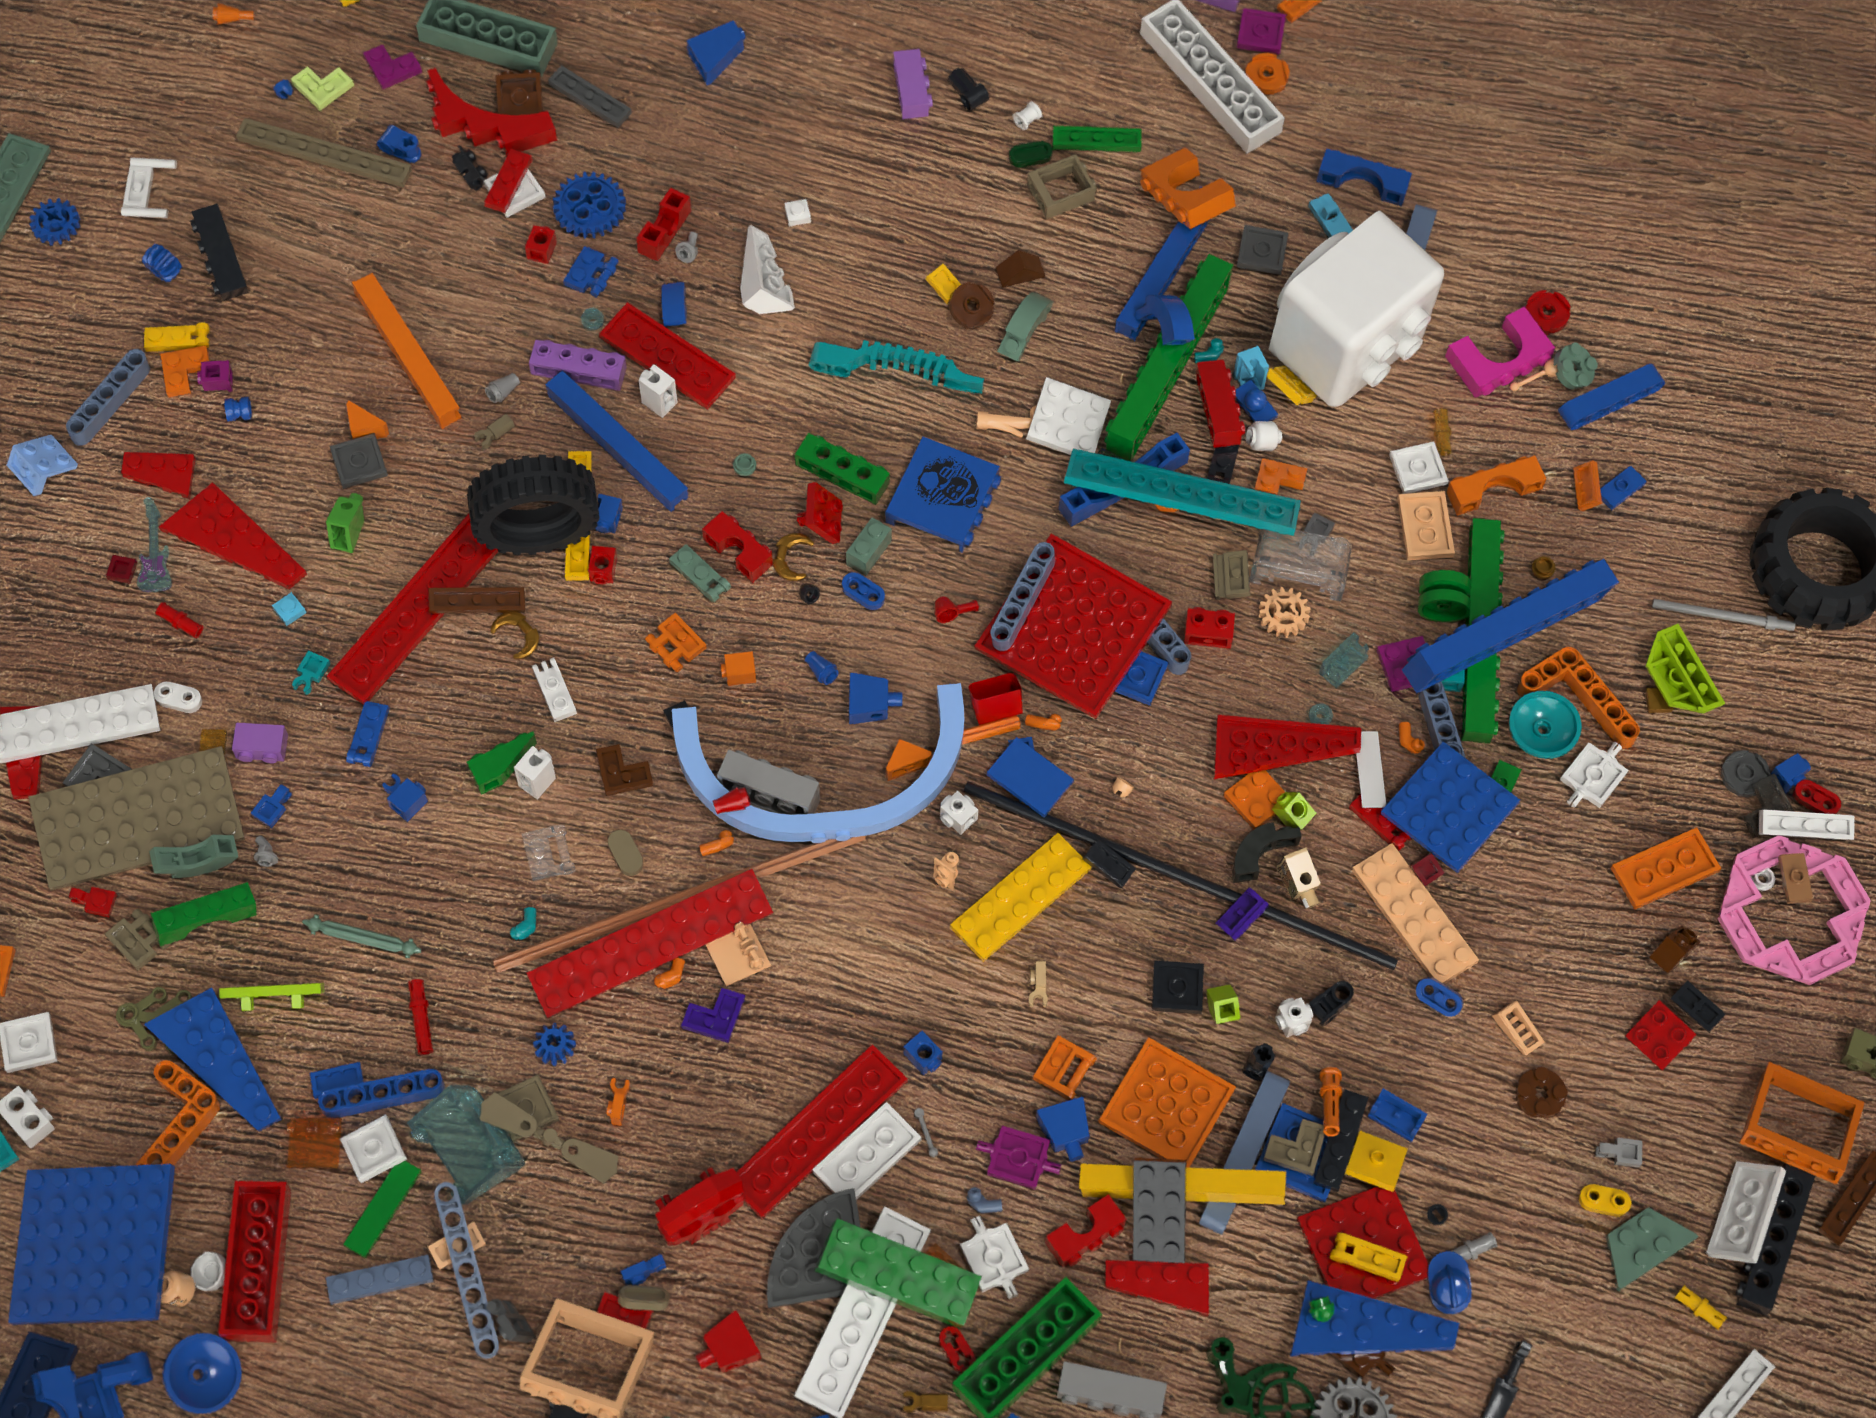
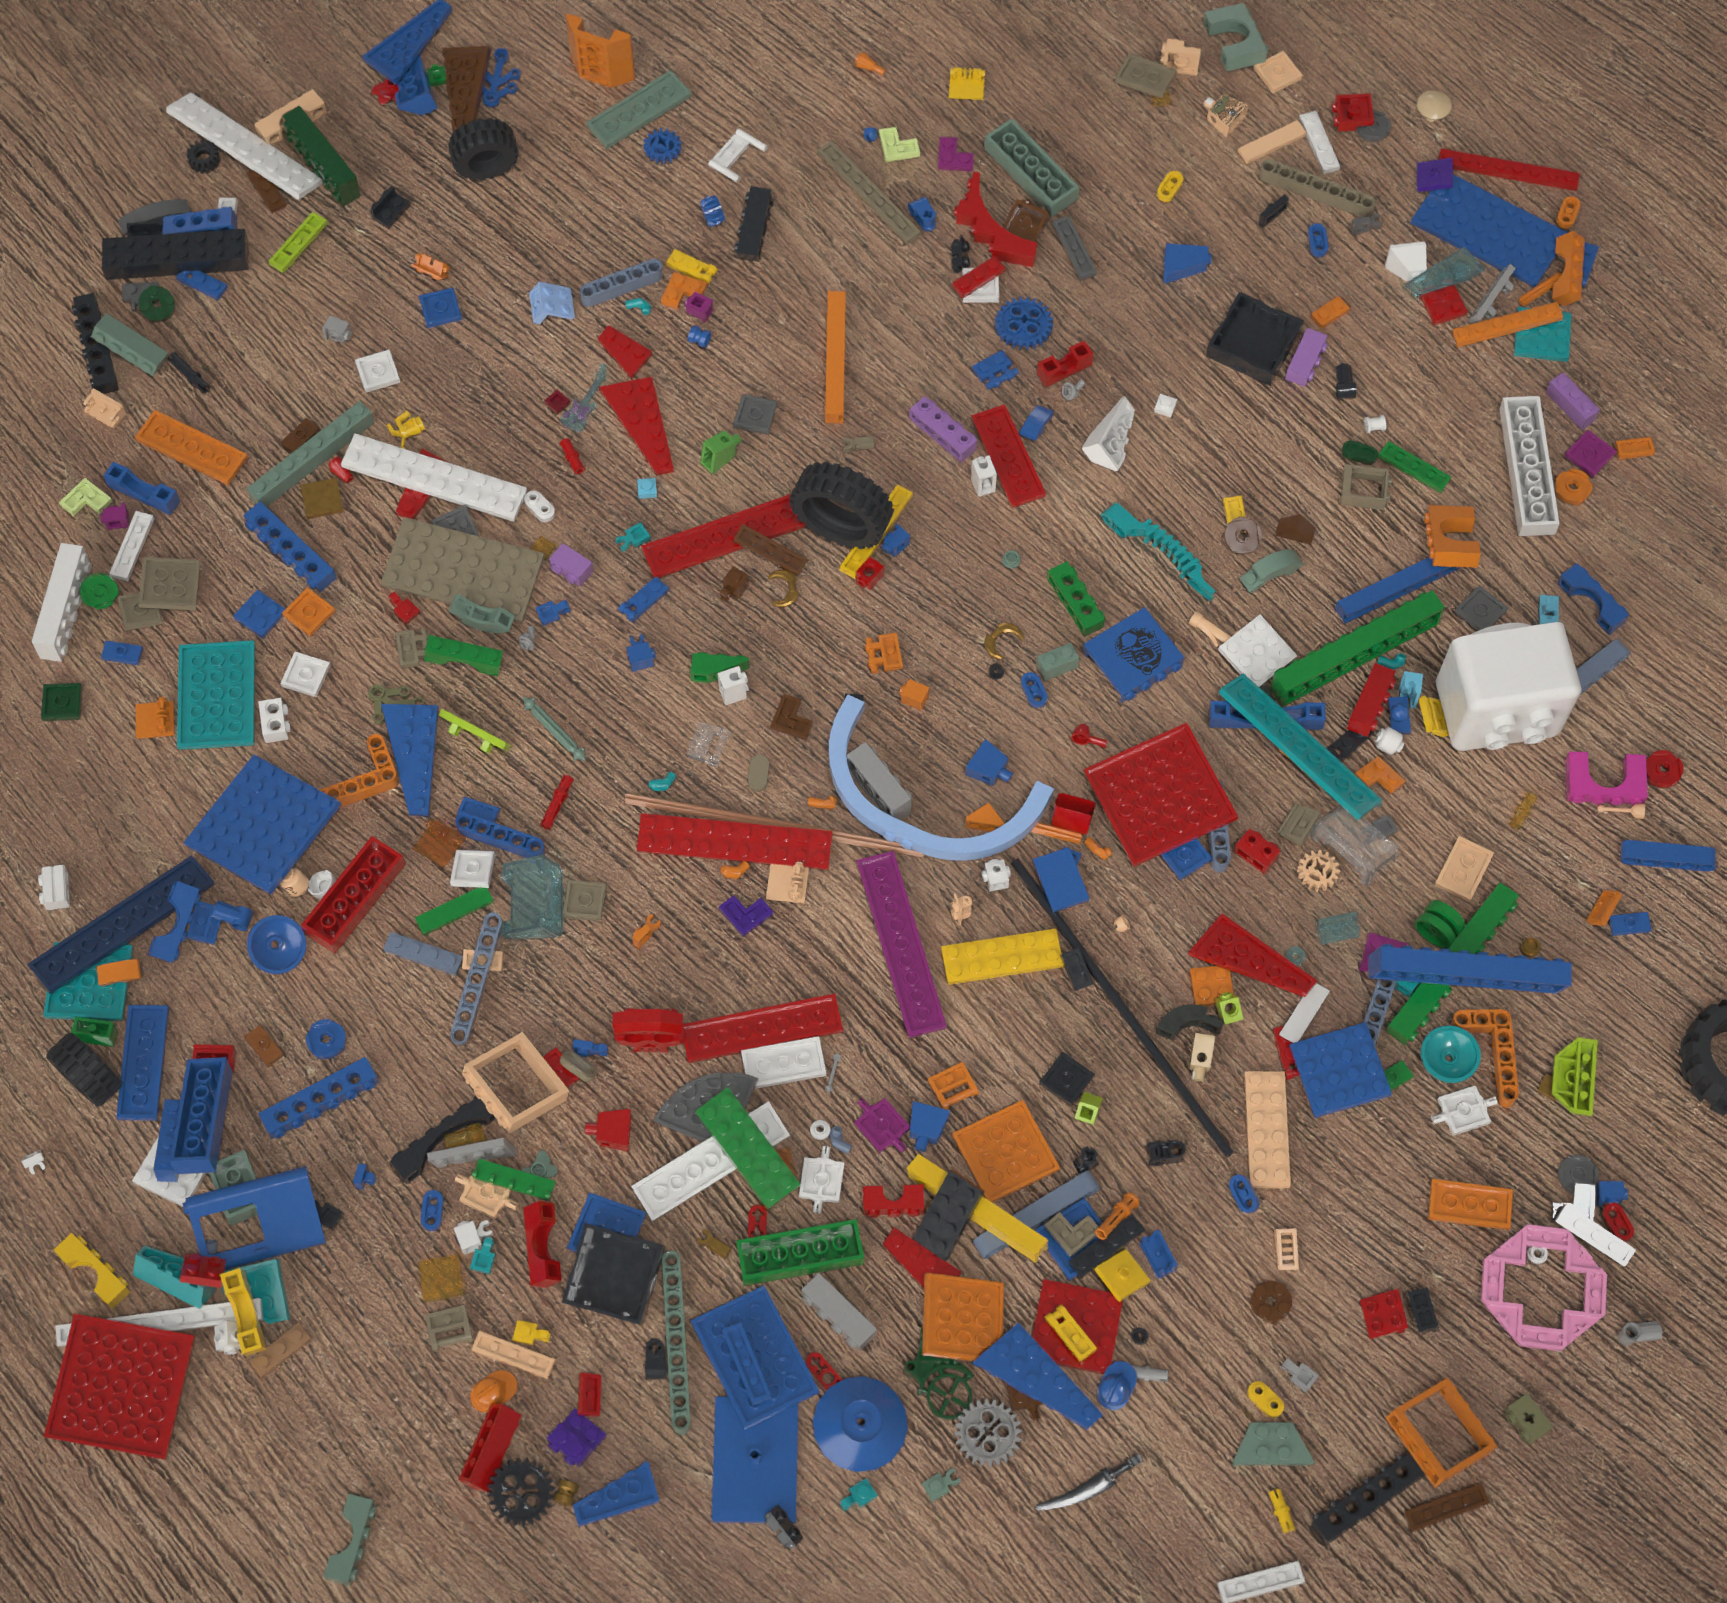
camera: 35 degrees right, 0 degrees up
(145, 408) = (640, 303): none -> teal arm
(365, 423) = (774, 390): orange slope -> none
(460, 659) = (734, 584): none -> reddish brown brick
(501, 388) = (880, 416): light grey cone -> none
(508, 1117) = (603, 957): dark tan piece -> none
(512, 1324) = (483, 1028): dark grey plate -> none
(541, 252) = (972, 339): red brick -> none
(548, 1051) = (637, 870): blue gear -> none
(554, 690) = (783, 640): white hinge -> none
(592, 313) = (974, 399): clear light blue plate -> none
(616, 441) = (934, 495): blue tile -> none
(699, 573) = (931, 615): sand green plate -> none
(725, 532) = (966, 597): red arch -> none
(732, 801) = (847, 778): red cone -> none
(822, 513) = (1040, 621): red plate -> none
(824, 670) = (970, 726): blue cone -> none
(845, 92) = (1254, 338): none -> black tile
(902, 25) = (1329, 312): none -> orange plate
(906, 948) = (901, 944): none -> magenta plate
(920, 1043) = (861, 1012): blue brick -> none
(955, 1211) = (820, 1135): none -> white plate
(1023, 606) = (1141, 746): sand blue beam -> none
(1038, 978) = (975, 1017): tan plate -> none
(1172, 316) = (1371, 619): blue arch -> none
(1242, 914) = (1144, 1057): dark purple hinge -> none
(1244, 1312) = (961, 1316): none -> orange tile
(1293, 1024) = (1132, 1146): white brick -> none
(1321, 1308) = (1011, 1345): green plate -> none
(1407, 741) = (1345, 1008): orange arm -> none
(1418, 467) = (1487, 826): white plate -> none
(1427, 869) = (1296, 1103): dark red plate -> none
(1522, 476) = (1559, 873): orange arch -> none
(1583, 361) = (1664, 818): sand green plate -> none
(1675, 948) = (1436, 1262): reddish brown slope -> none
(1746, 1212) = (1358, 1467): white plate -> none
(1769, 622) = (1672, 1080): light grey bar -> none
(1795, 878) = (1558, 1266): medium nougat plate -> none

